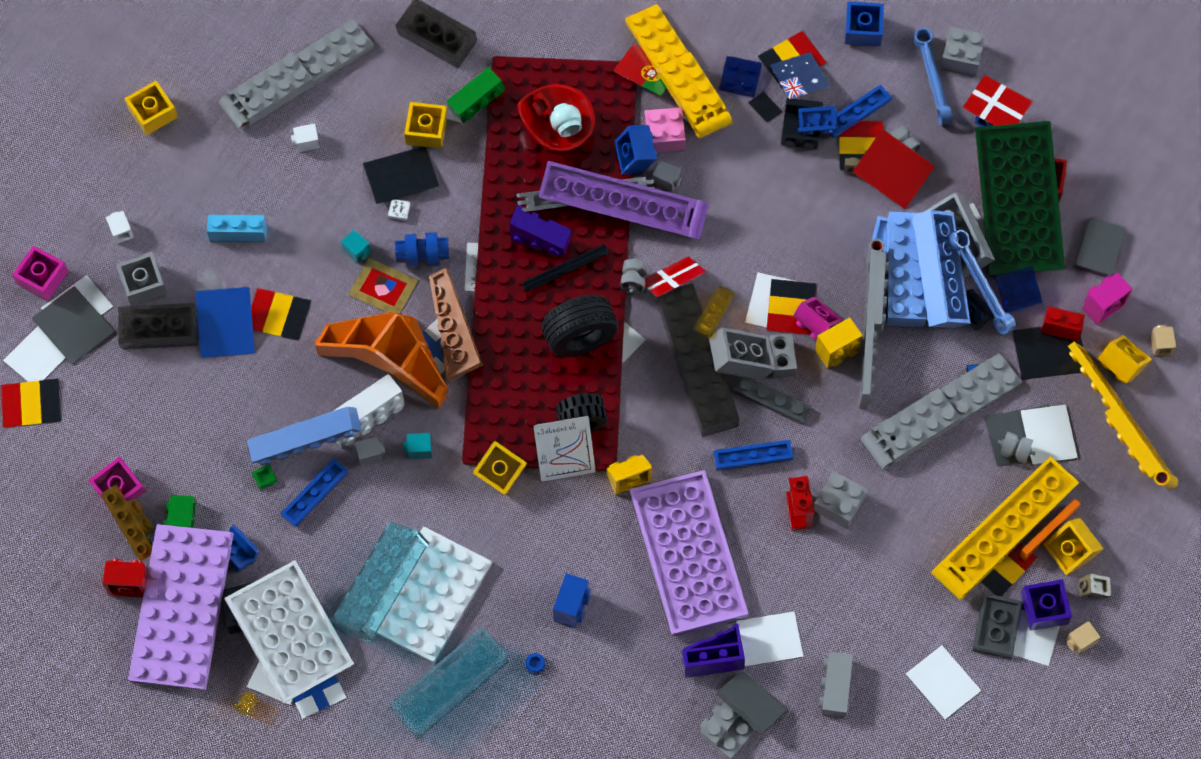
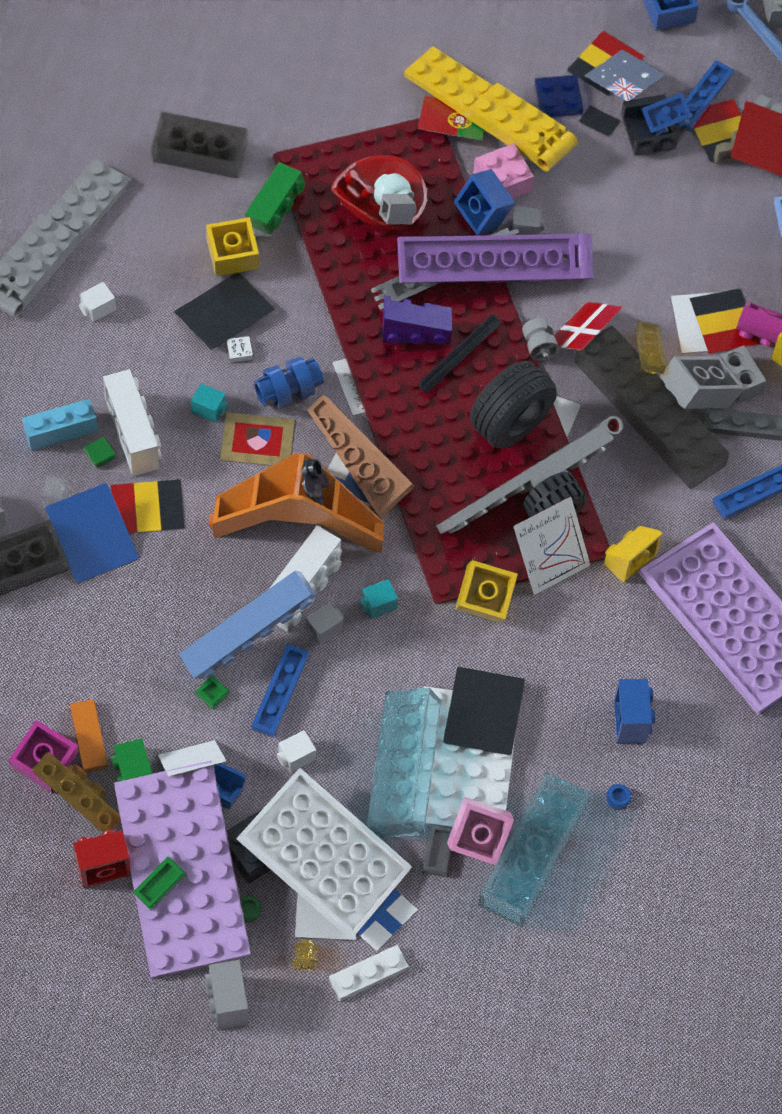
camera: 25 degrees left, 5 degrees down
(158, 612) = (159, 883): none -> green tile
(159, 480) = (88, 735): none -> orange tile
(174, 714) = (229, 999): none -> light grey brick
(221, 653) = (251, 908): none -> green tile
(223, 522) = (190, 756): none -> white sticker
(259, 259) = (99, 452): none -> green tile
(288, 733) = (368, 973): none -> white plate
(289, 244) = (132, 422): none -> white brick
(305, 545) = (296, 751): none -> white brick
(380, 658) = (437, 852): none -> flat silver tile
(393, 339) = (314, 480): none -> black plate
(412, 654) = (480, 831): none -> bright pink brick
(459, 561) = (484, 711): none -> black sticker
(560, 135) = (397, 209): none -> light grey brick
(593, 384) = (563, 460): none -> light grey hinge

